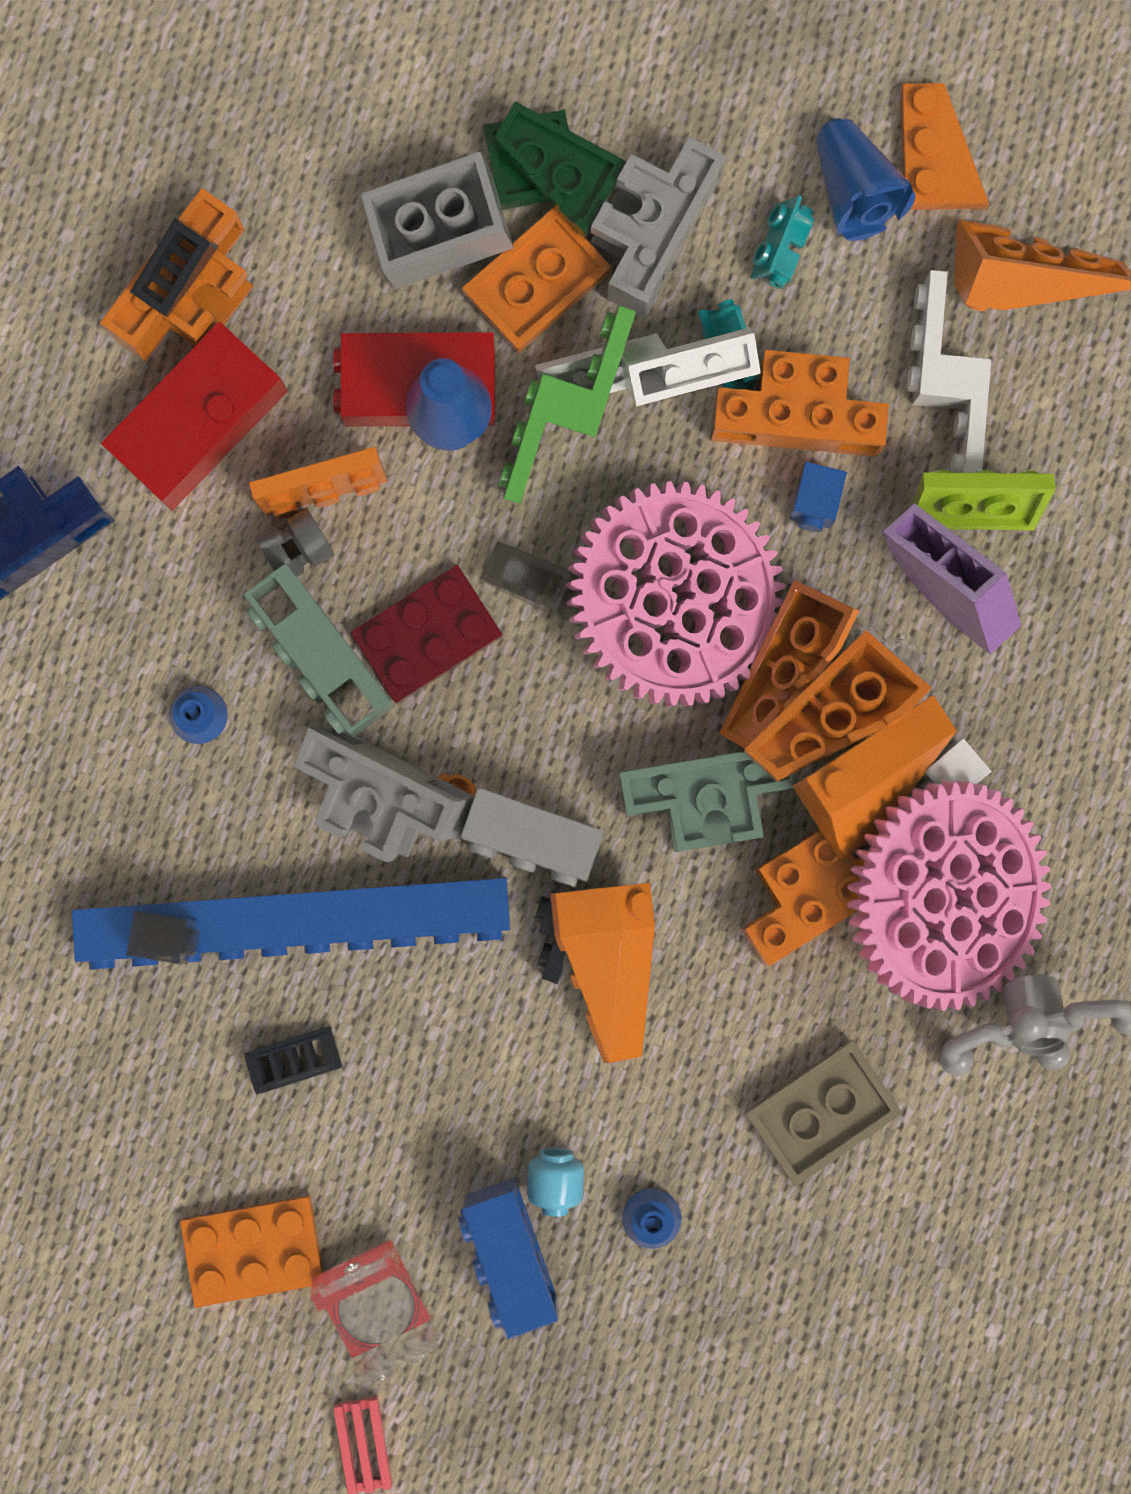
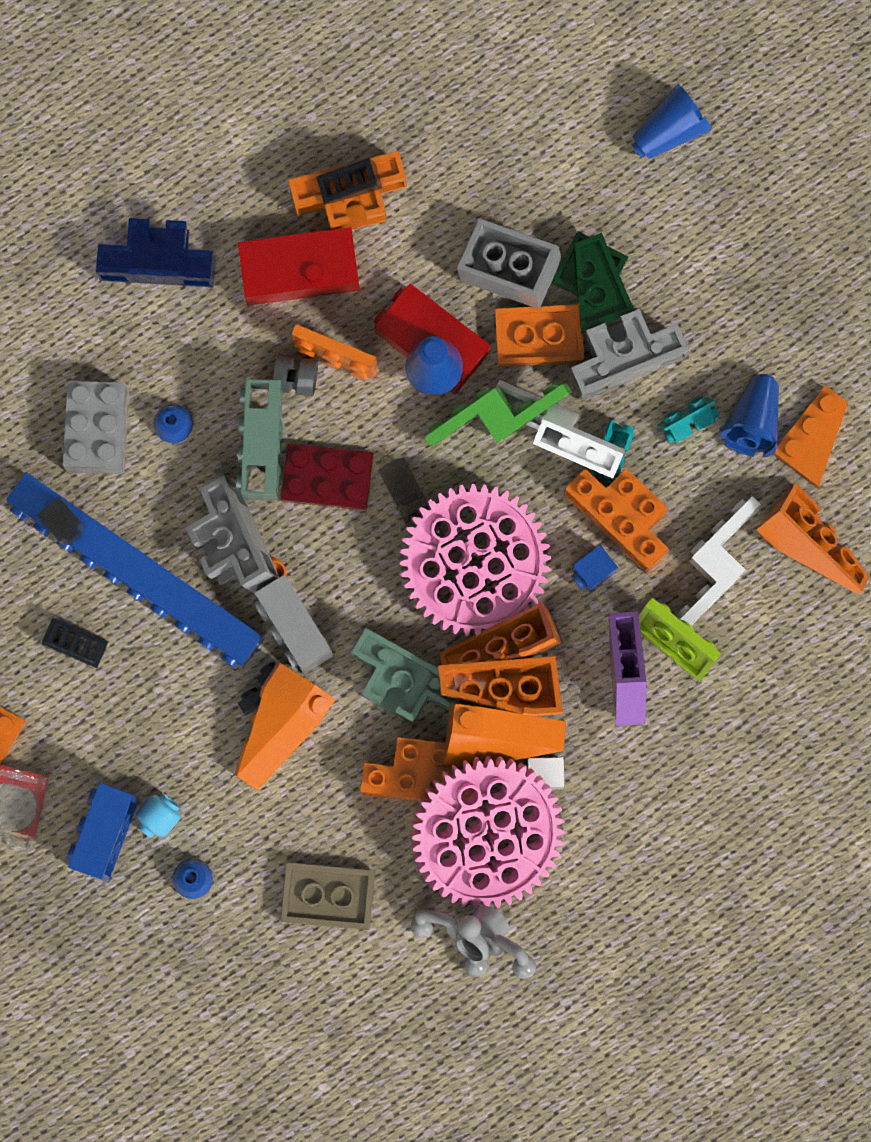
camera: 45 degrees right, 5 degrees down
(111, 791) = (96, 427): none -> light grey brick

